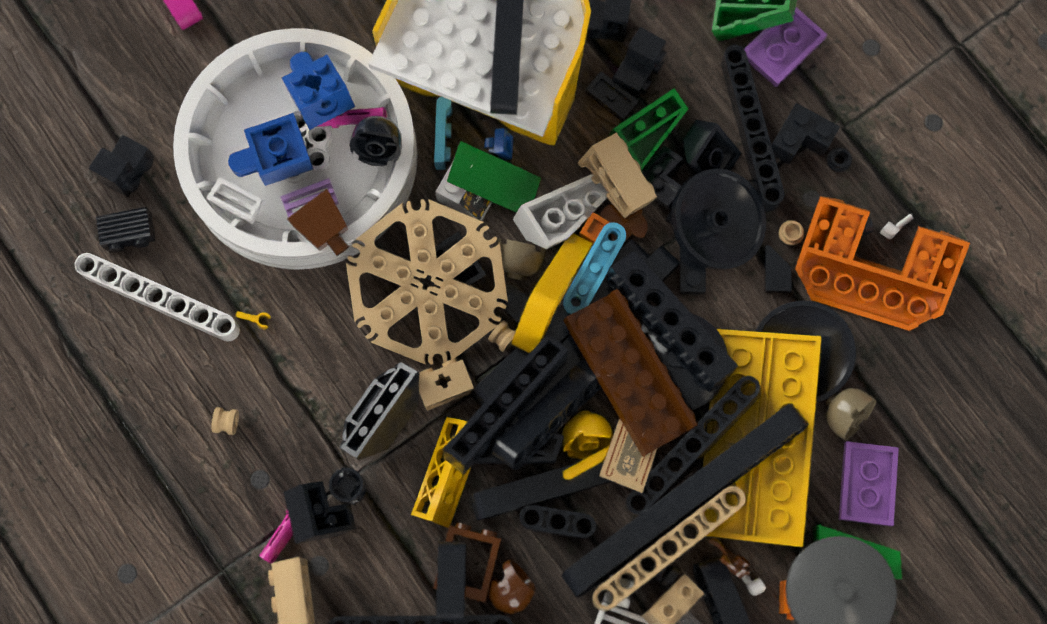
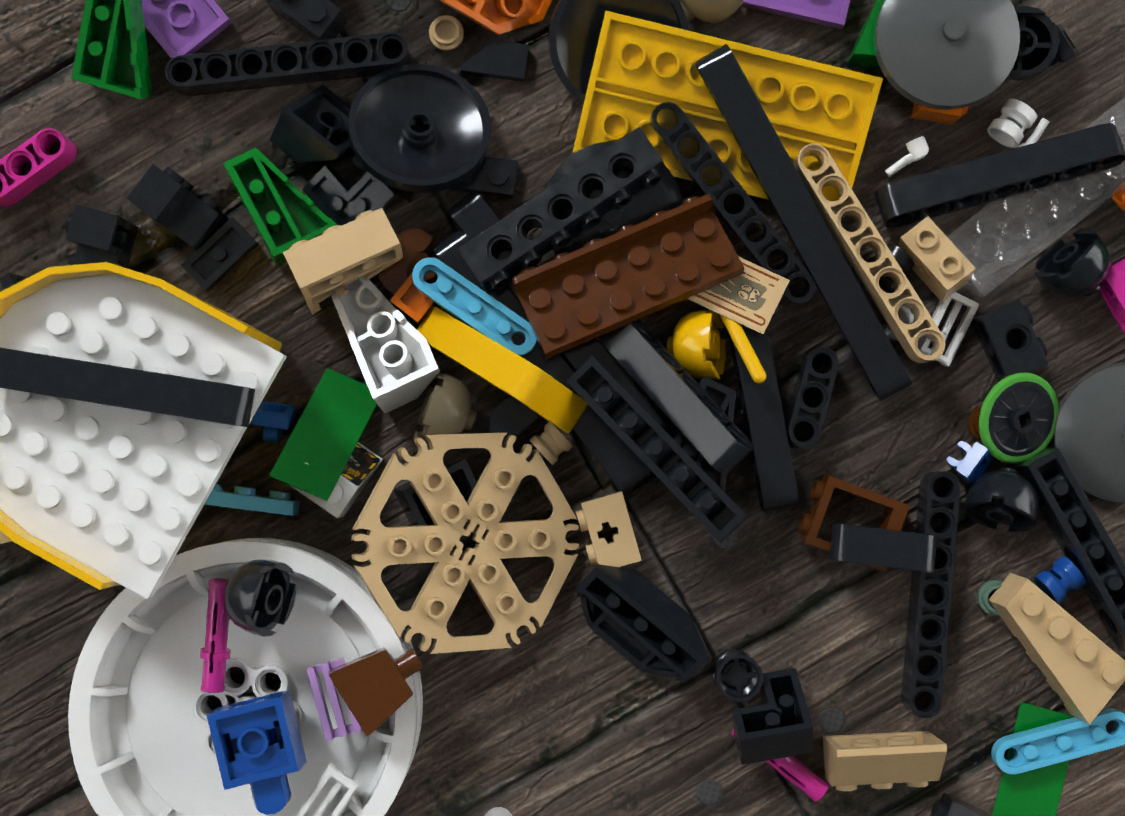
camera: 90 degrees left, 10 degrees up
(254, 318) = (486, 788): yellow hand -> none
(317, 89) = (171, 677): blue brick -> none
(447, 492) = (756, 540): yellow fence -> none
(514, 591) = (898, 464): reddish brown helmet -> none
(736, 564) = (889, 172): reddish brown plate -> none

